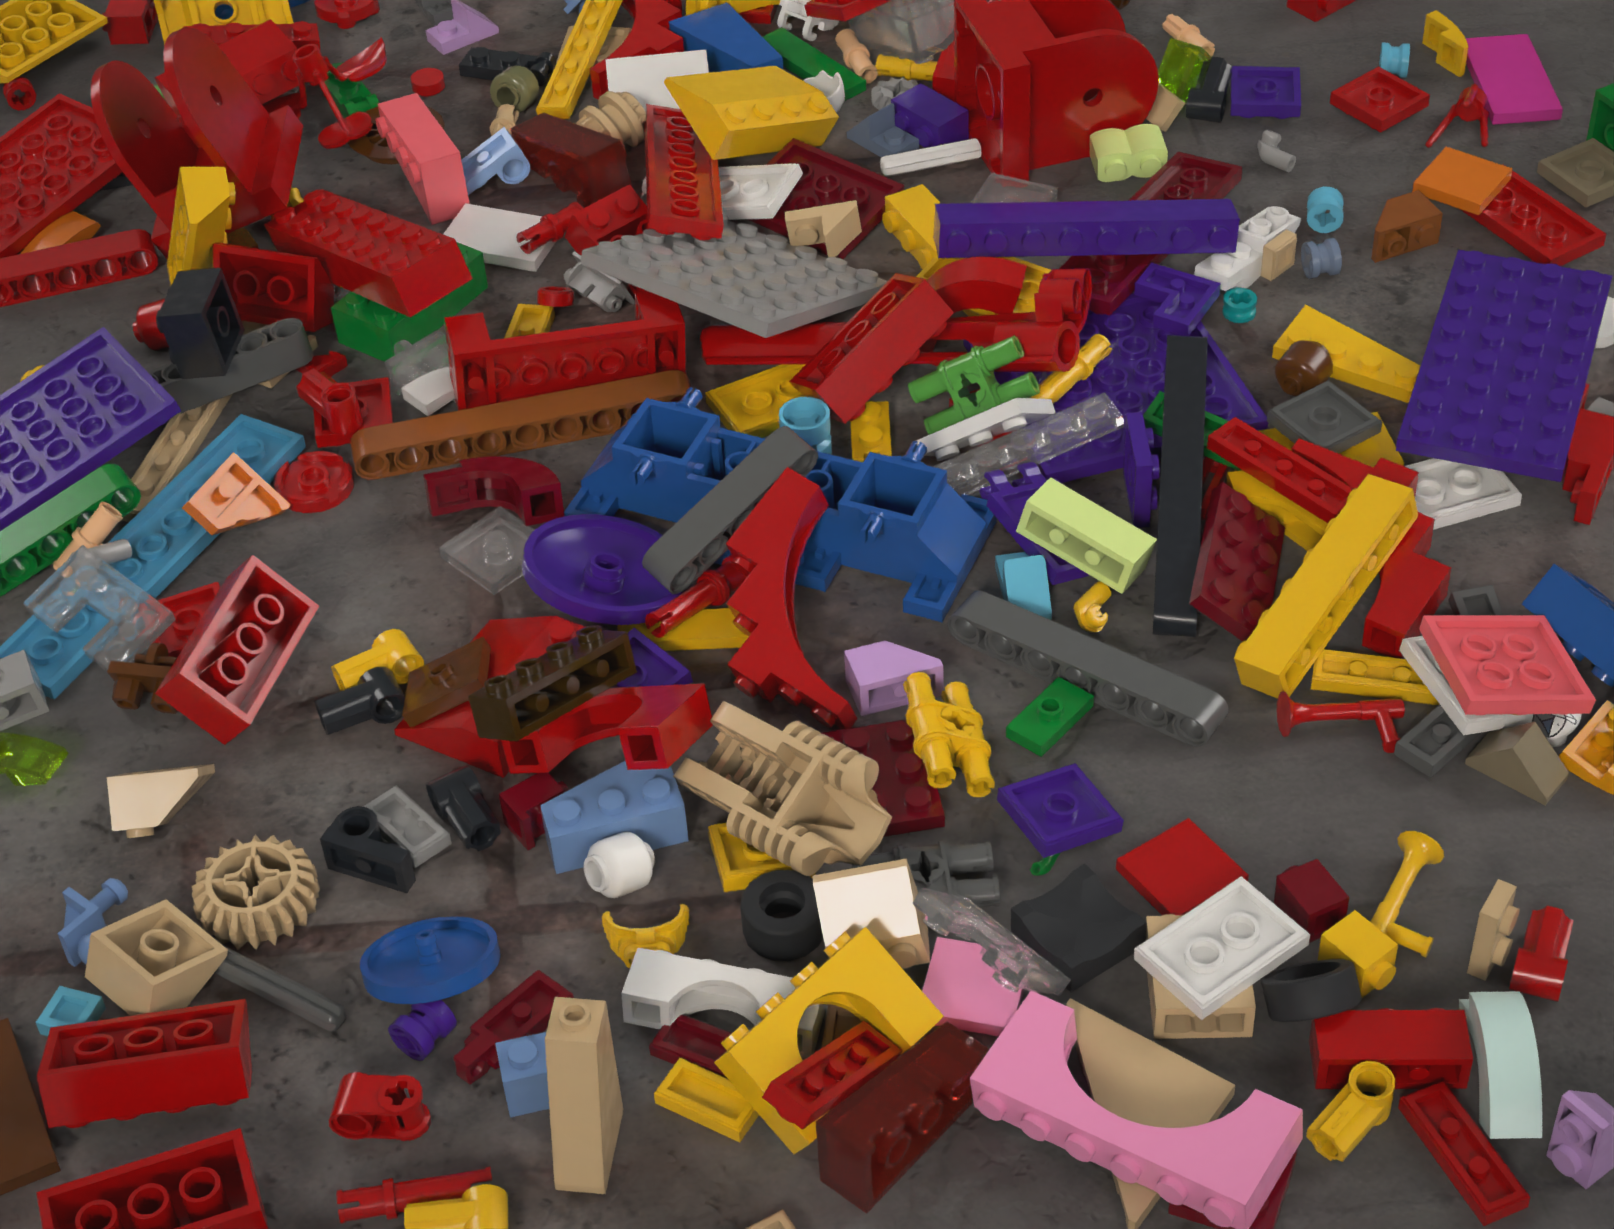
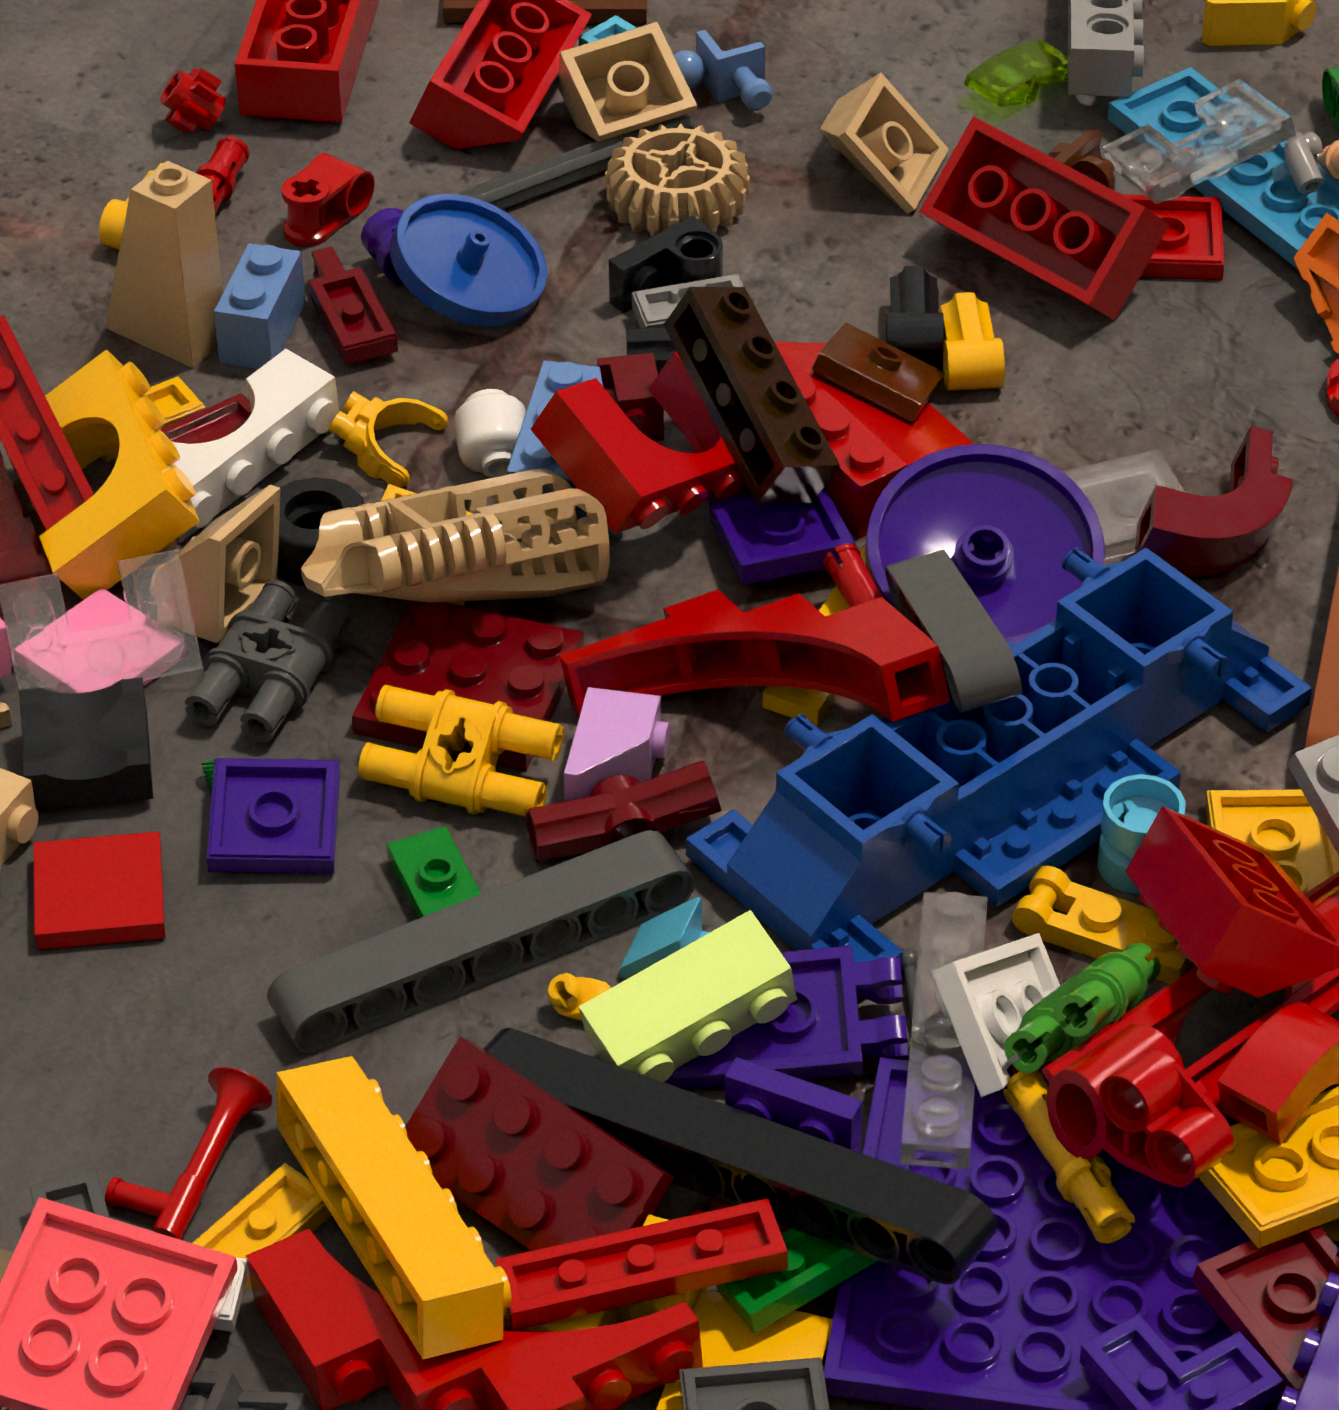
camera: 115 degrees right, 0 degrees up
(923, 634) = (620, 809): none -> dark red piece

